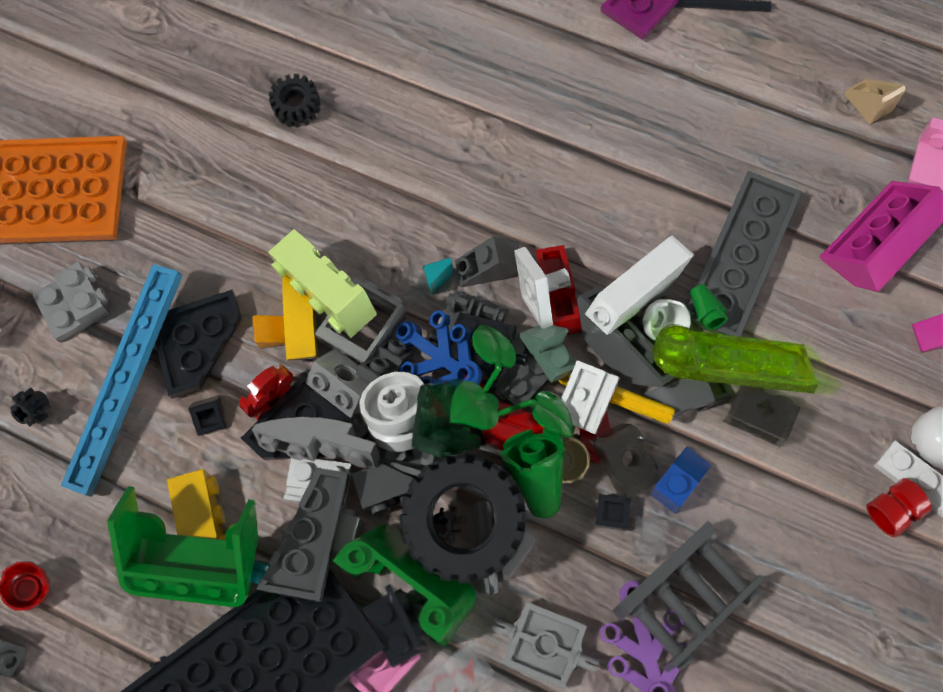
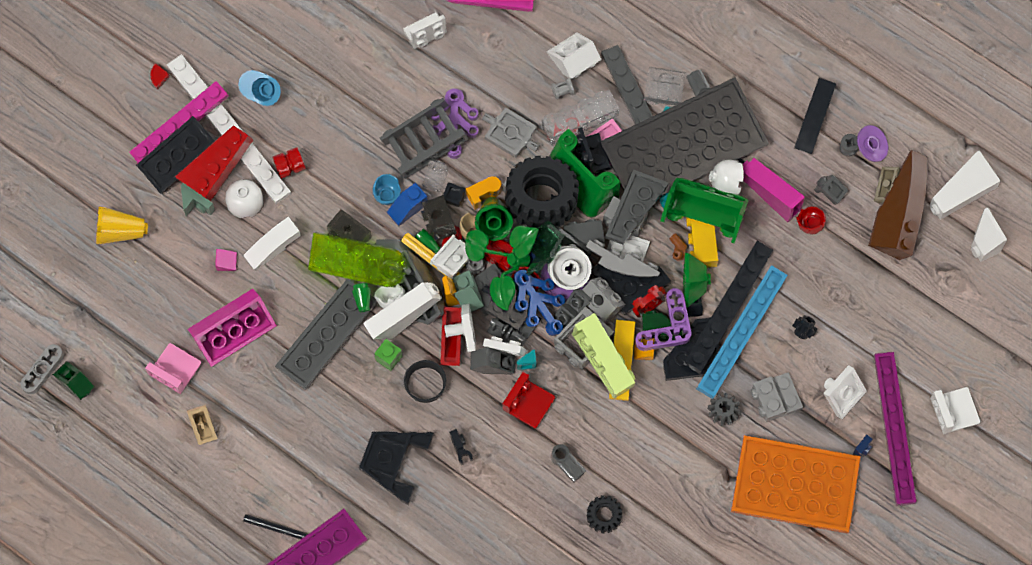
camera: 175 degrees left, 0 degrees up
(87, 626) = (773, 189): none -> dark pink slope
(139, 262) = (731, 409): none -> dark grey gear
(148, 409) = (728, 307): none -> black plate
(160, 626) = (727, 176): none -> white cylinder
(202, 437) = (694, 279): none -> green slope
(220, 354) = (676, 326): none -> medium lavender beam
(235, 495) = (680, 247): none -> dark orange arm
(249, 358) = (654, 320): none -> dark green slope
(355, 151) = (569, 464): none -> dark grey piece
(426, 220) = (527, 401): none -> red bracket
(473, 278) = (512, 347): none -> white plate
(511, 145) = (458, 442): none -> black plate
(559, 535) = (482, 190): none -> light orange leg
(578, 342) = (449, 290): none -> light orange slope
(585, 193) = (424, 364): none -> black tyre
(606, 114) = (385, 456): none -> black wing
(642, 238) = (388, 354): none -> bright green brick
(643, 423) = (428, 240): none -> green cone
(723, 493) = (386, 189): none -> dark azure hair
(872, 371) = (272, 243): none -> white slope

